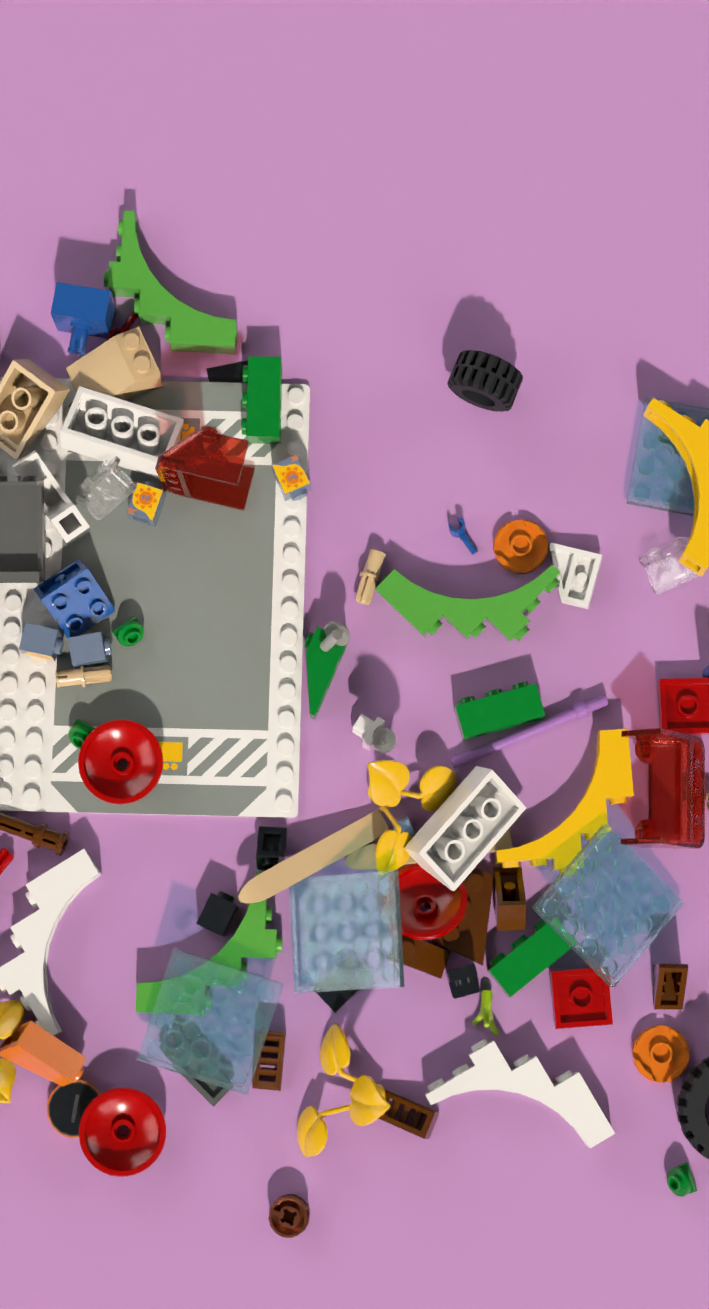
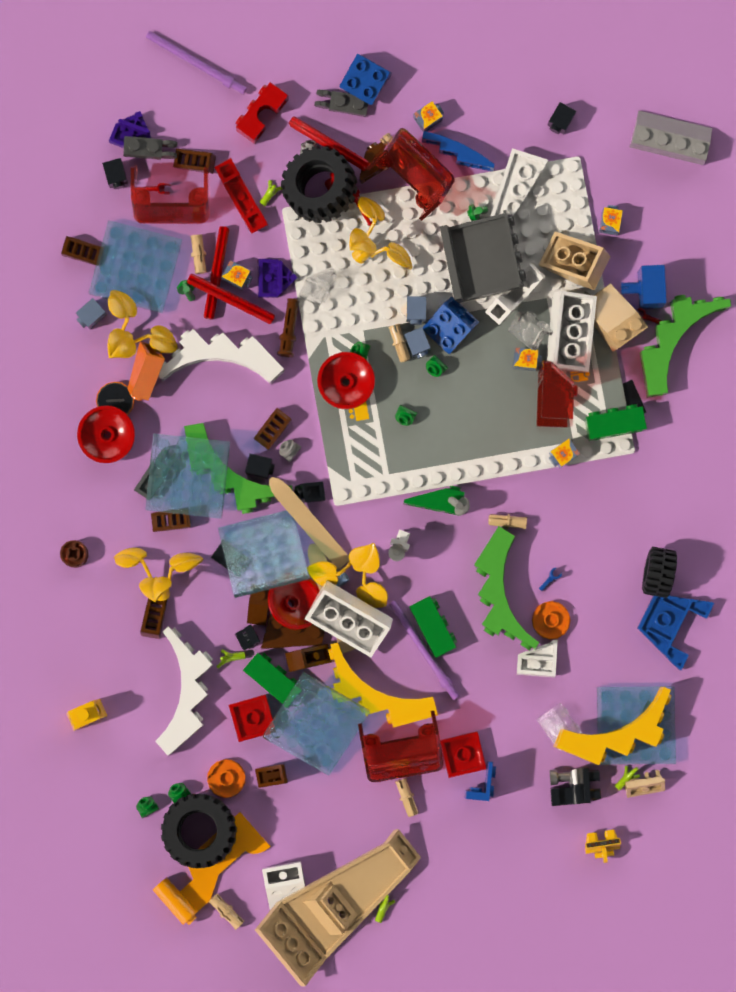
camera: 75 degrees right, 5 degrees up
(150, 866) = (277, 412): none -> reddish brown slope
(189, 689) = (405, 416): none -> green plate
(202, 866) = (289, 449): none -> light grey plate
(531, 1243) = (86, 714): none -> yellow torso
(552, 393) = (664, 620): none -> blue wing
(669, 1128) = (177, 791): none -> green plate

